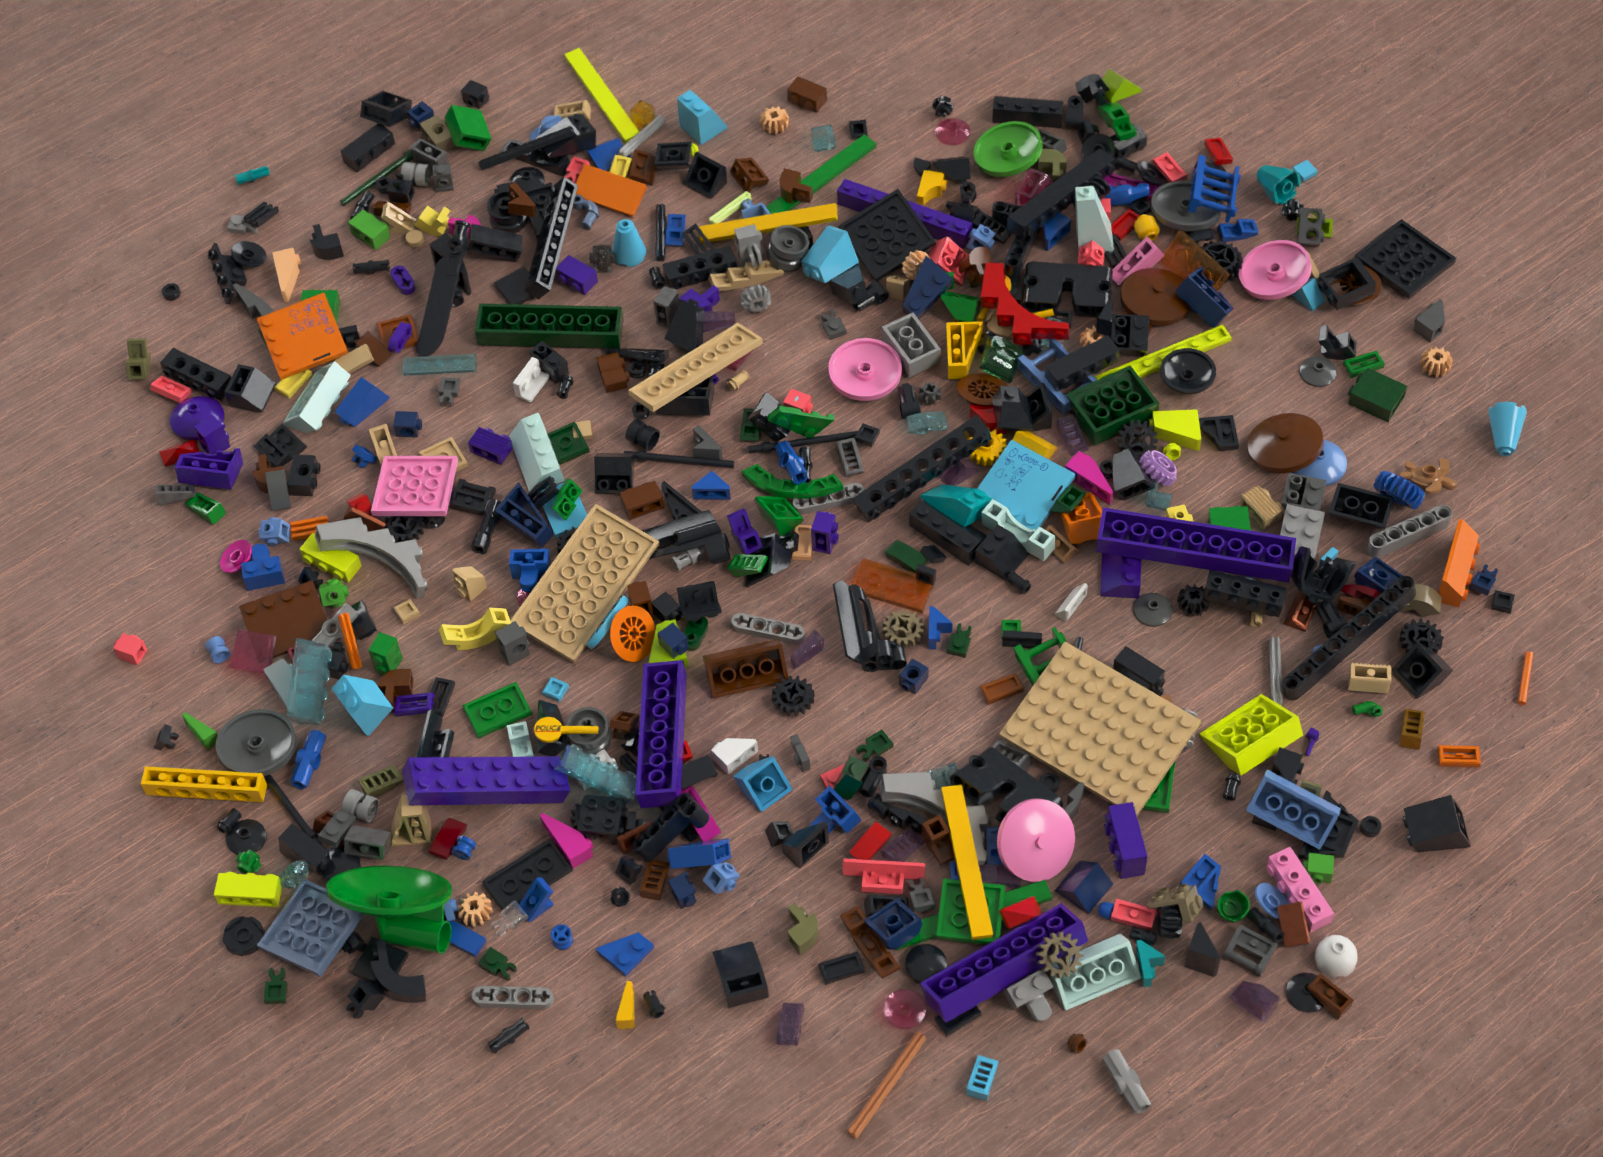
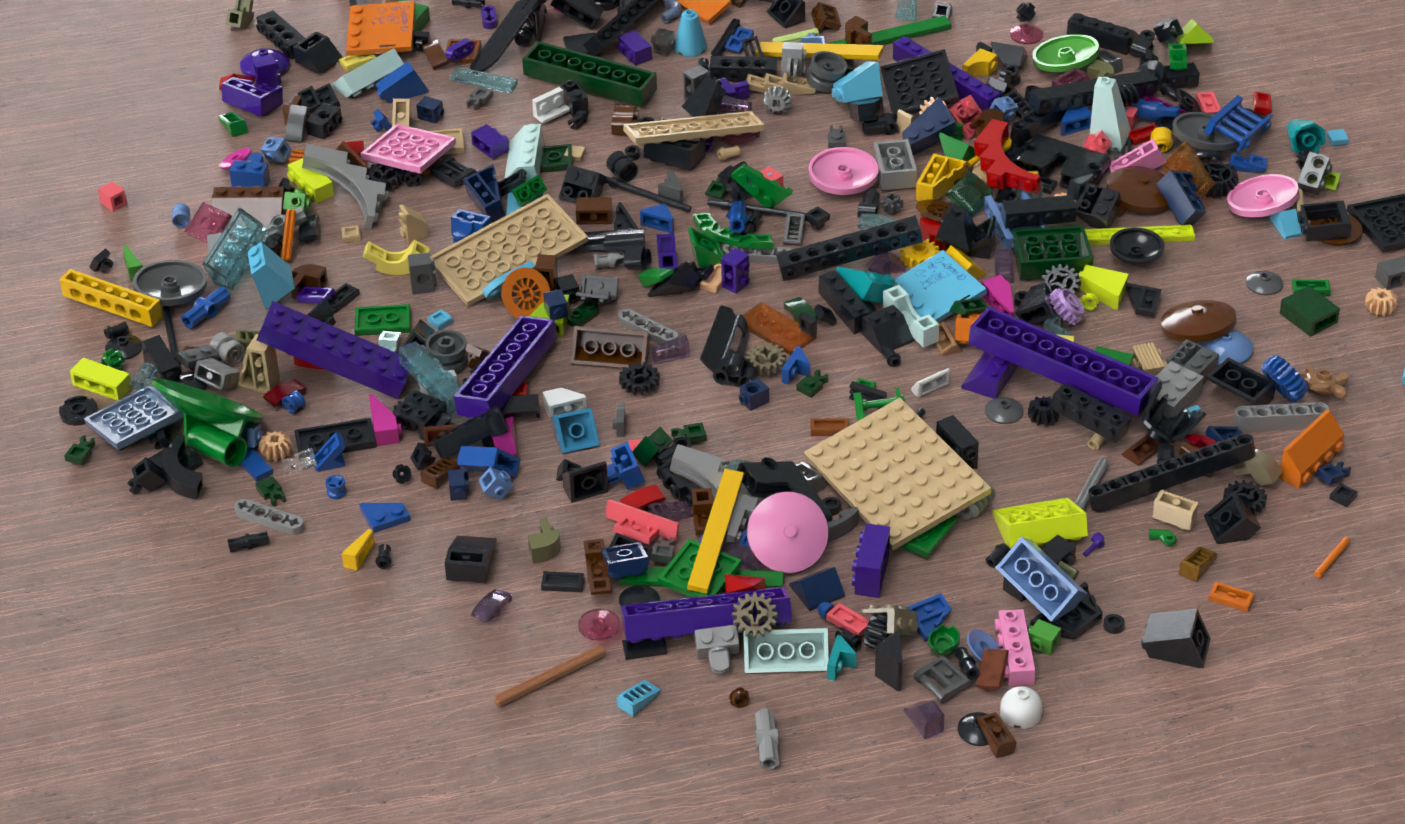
camera: 20 degrees right, 15 degrees down
(170, 389) = (255, 39): coral plate -> none
(173, 493) = (207, 104): flat silver slope -> none
(355, 359) = (416, 56): tan tile -> none
(385, 653) = (311, 249): green brick -> none
(483, 536) = (444, 200): black axle -> none
(550, 729) = (412, 332): yellow piece -> none
(640, 354) = (656, 113): black wing -> none
(1336, 346) = (1290, 266): black brick -> none

